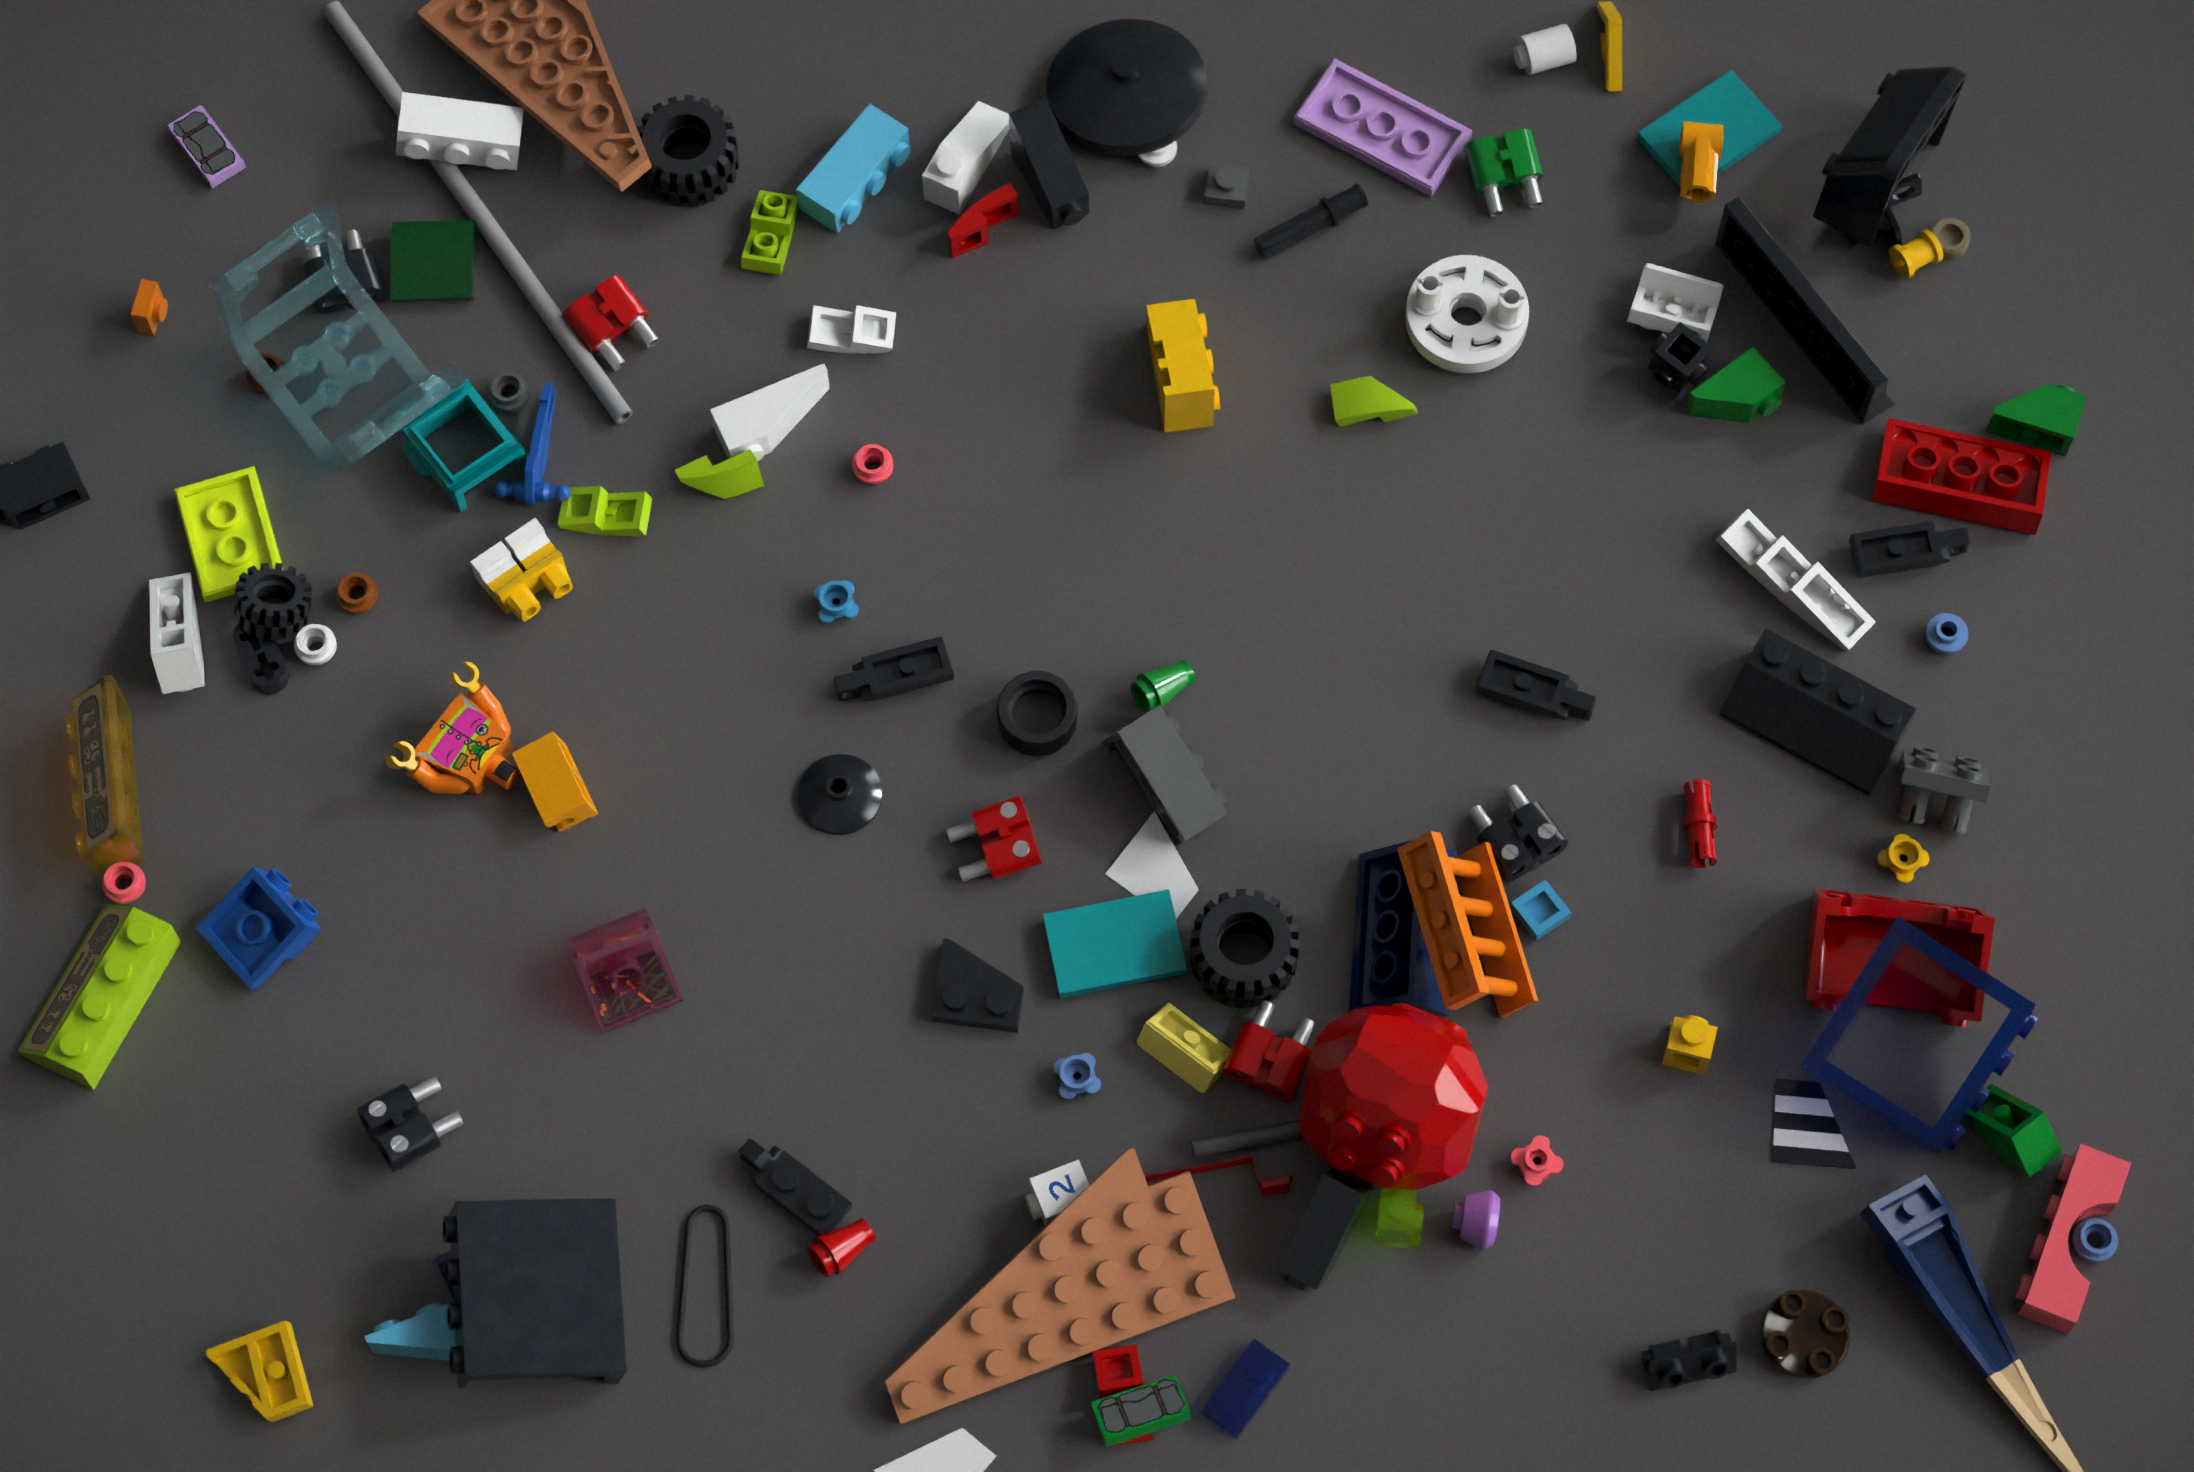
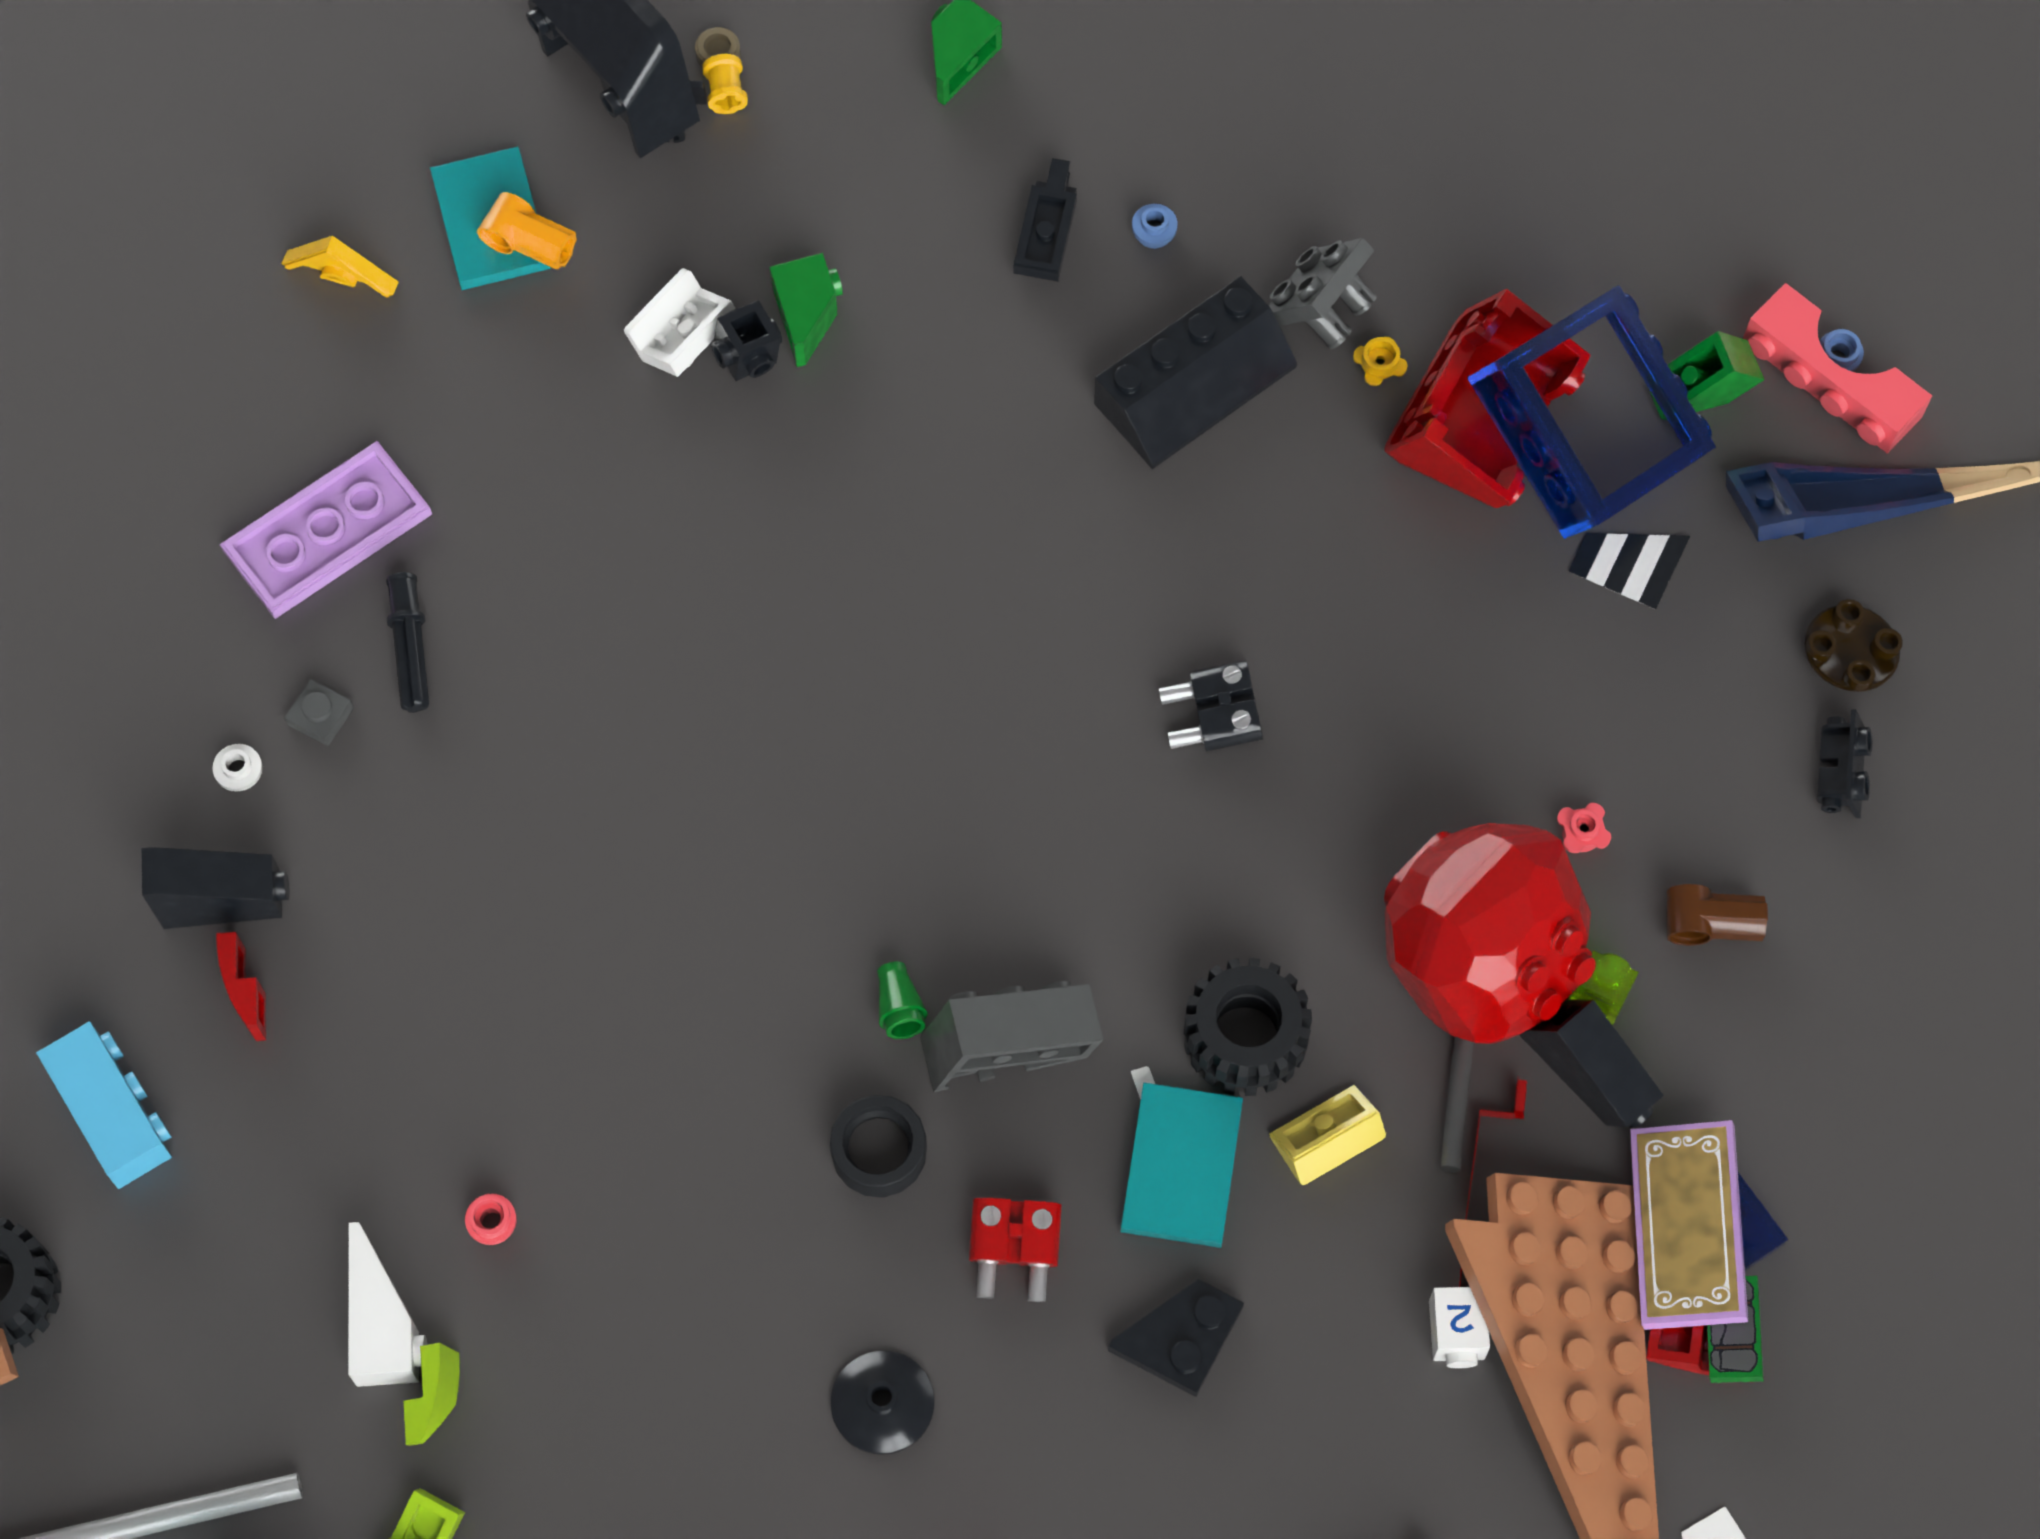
camera: 70 degrees left, 0 degrees up
(606, 315) = (158, 1457): red piece -> none
(770, 232) = (137, 1231): lime slope -> none
(836, 590) = (635, 1309): dark azure plate -> none
(854, 332) = (309, 1183): white slope -> none
(896, 671) = (763, 1282): black hinge -> none
(964, 157) = (148, 974): white slope -> none
(1074, 1064) = (1332, 1249): medium blue plate -> none
(1127, 87) = (148, 768): black dish -> none
(1154, 865) = (1104, 1092): white sticker -> none
(1182, 365) = (524, 837): yellow wedge -> none
(1214, 1346) = (1688, 1225): none -> pearl gold tile
(1269, 1060) = (1378, 1052): red piece -> none
(1367, 399) = (650, 666): lime slope -> none
(1388, 943) = (1285, 862): dark blue slope -> none
(1447, 930) = (1316, 788): orange fence -> none
(1477, 1218) = (1632, 906): medium lavender cone -> none
(1497, 1279) = (1700, 916): none -> reddish brown piece
(1501, 308) = (614, 497): white piece -> none
(1504, 163) = (432, 425): green piece -> none
(1533, 687) = (1055, 630): black hinge -> none
(1540, 910) = (1310, 718): dark azure plate -> none
(1545, 49) = (318, 330): white brick -> none
(1691, 1038) = (1512, 631): yellow brick -> none
(1700, 823) = (1272, 530): red pin -> none
(1795, 582) = (1038, 339): white slope -> none
(1802, 312) = (747, 206): black arch -> none
(1962, 476) = (988, 143): red slope -> none

